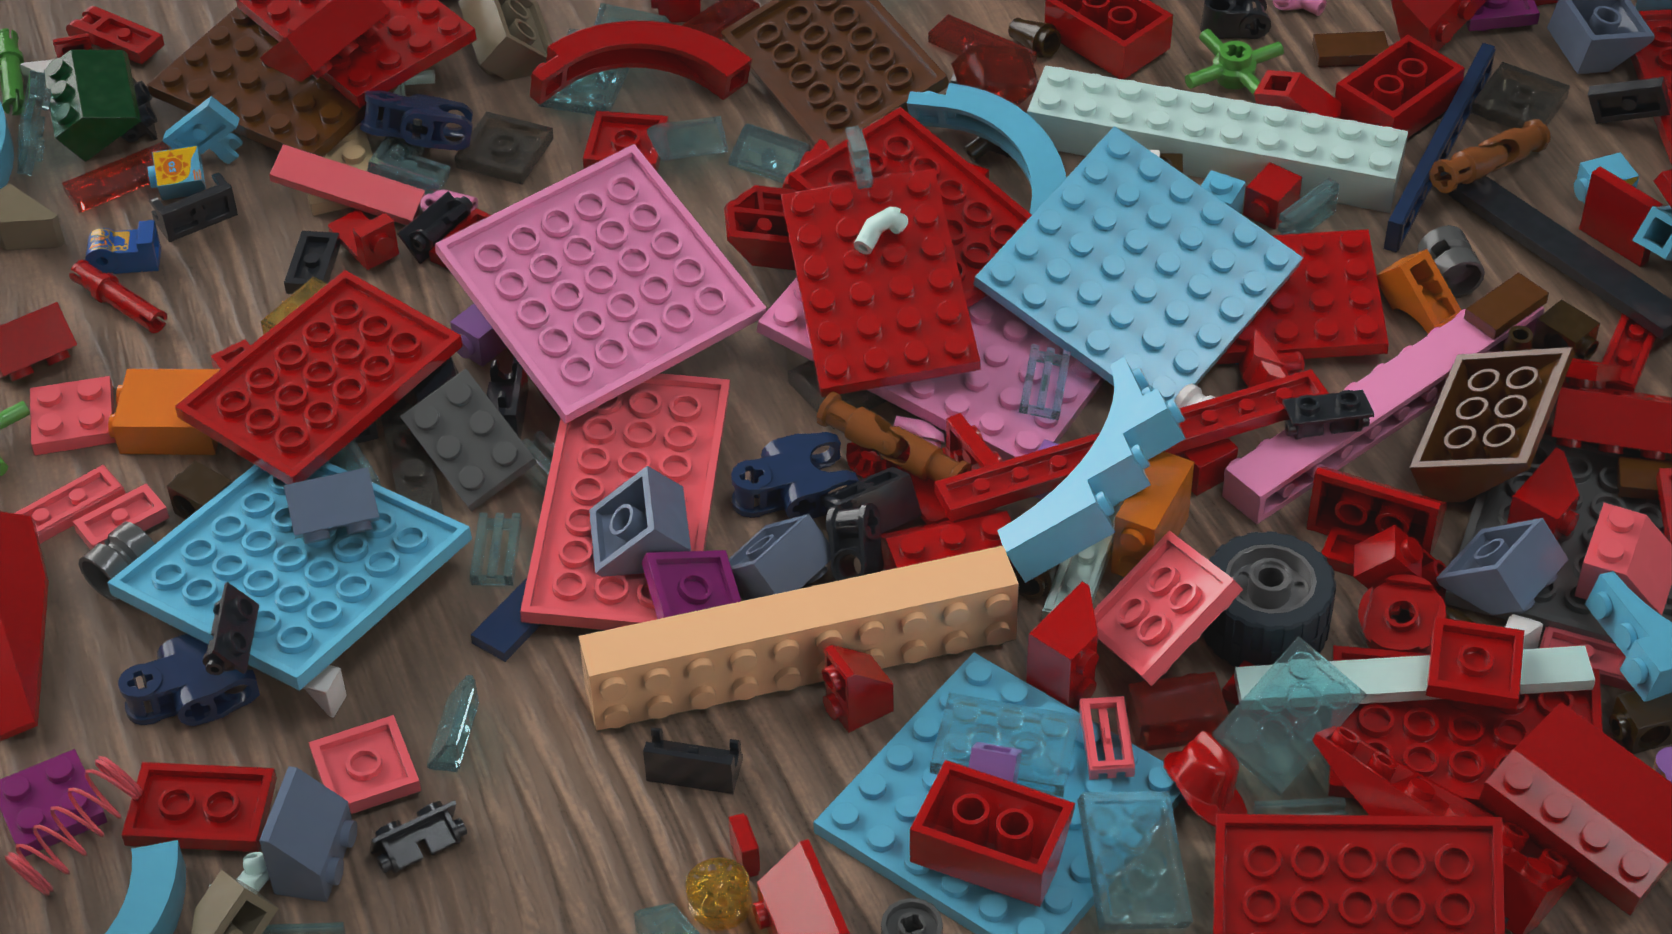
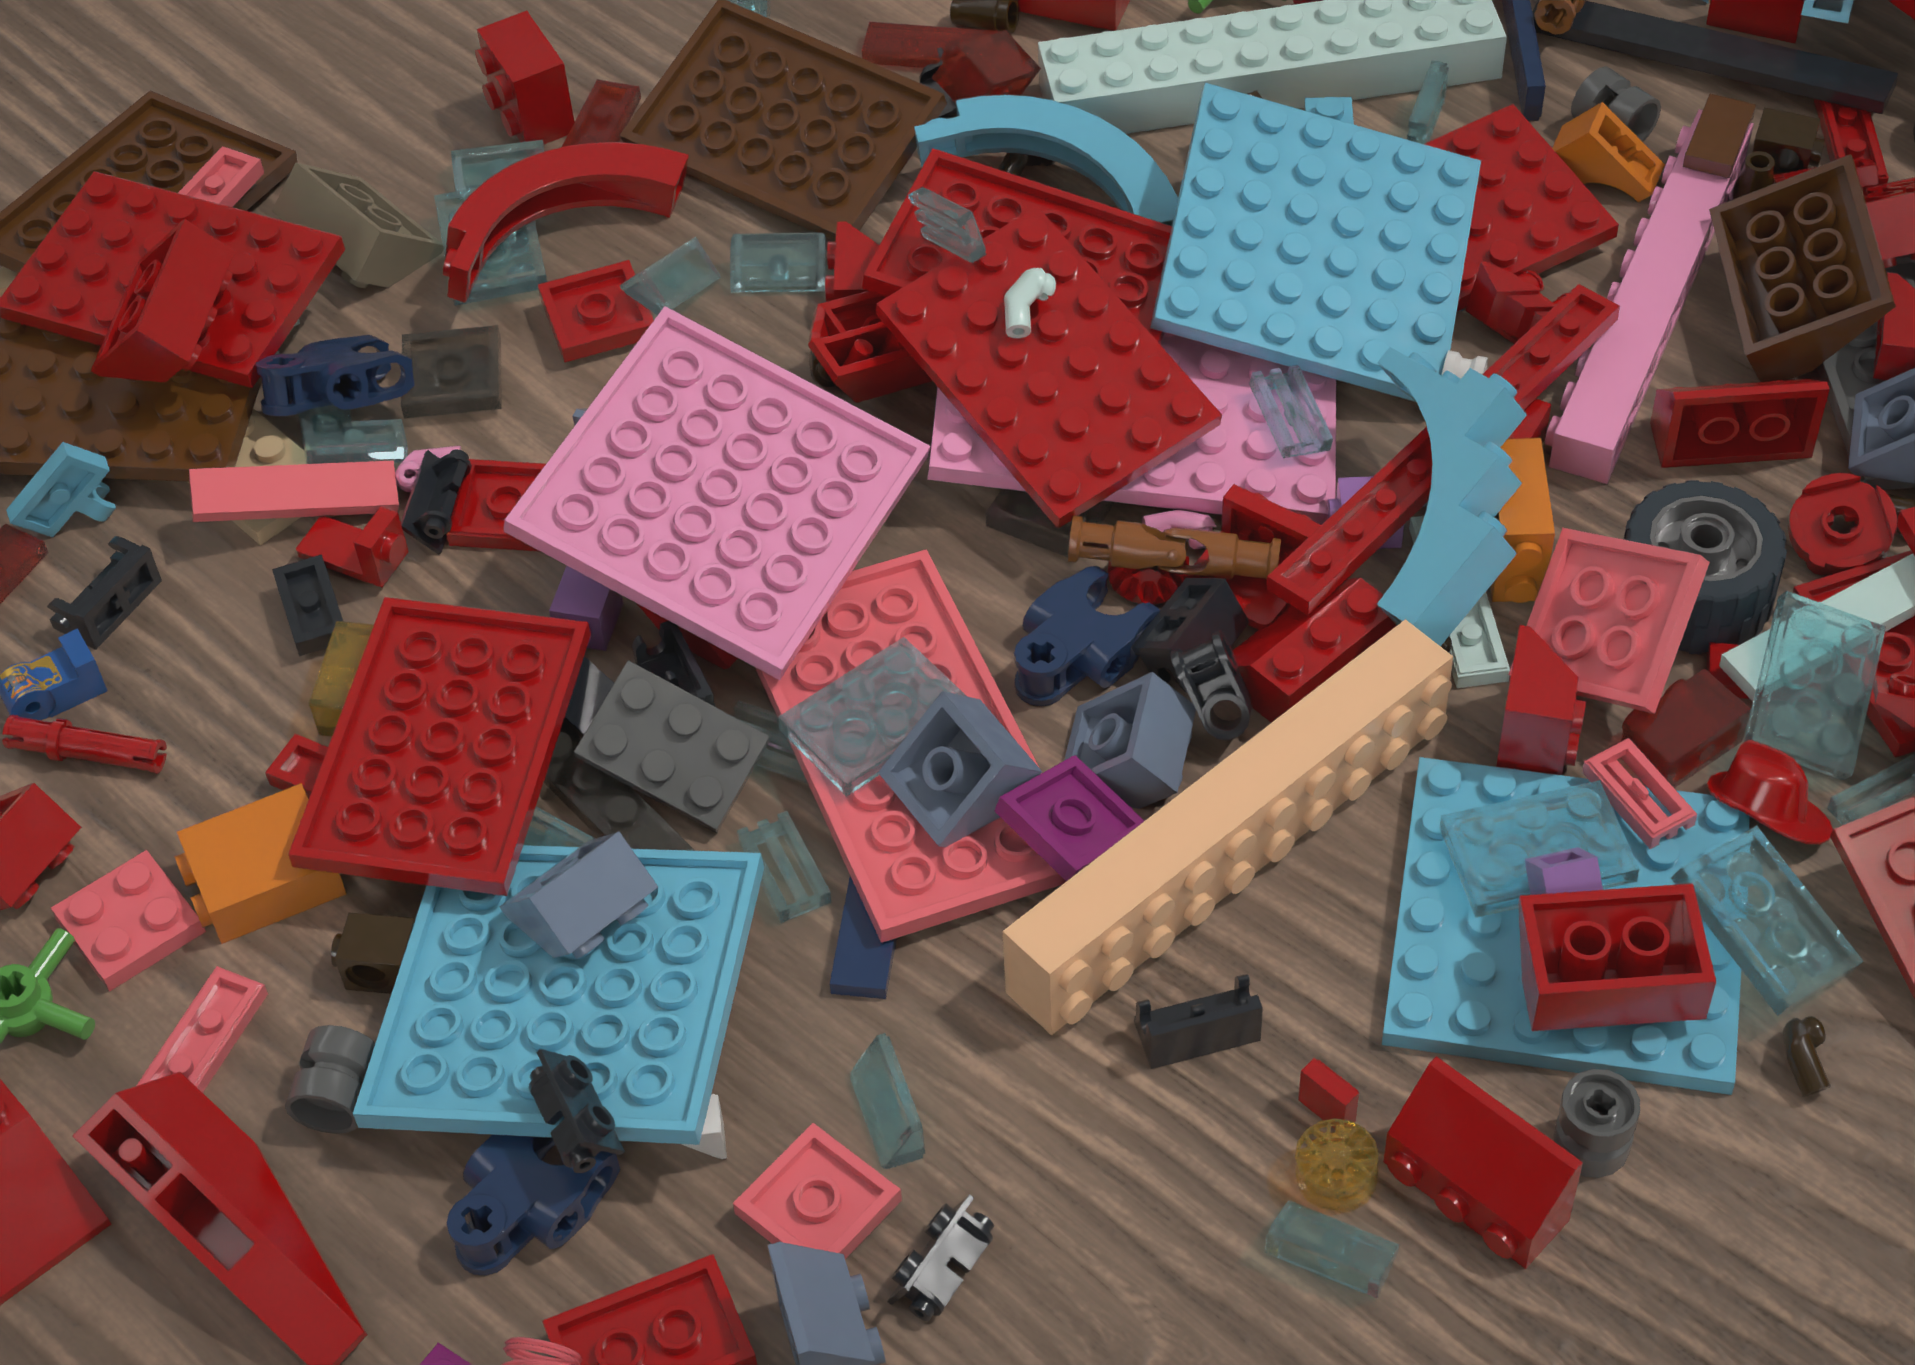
camera: 25 degrees left, 5 degrees up
(137, 506) = (282, 1031): coral plate -> none
(177, 172) = (59, 557): brick -> none
(593, 468) = (865, 714): none -> clear light blue plate
(855, 688) = (1328, 857): red slope -> none
(1271, 194) = (1377, 98): red brick -> none
(1340, 549) = (1726, 467): red tile -> none
(1344, 410) = (1628, 324): black hinge -> none
(1393, 554) = (1789, 464): red slope -> none

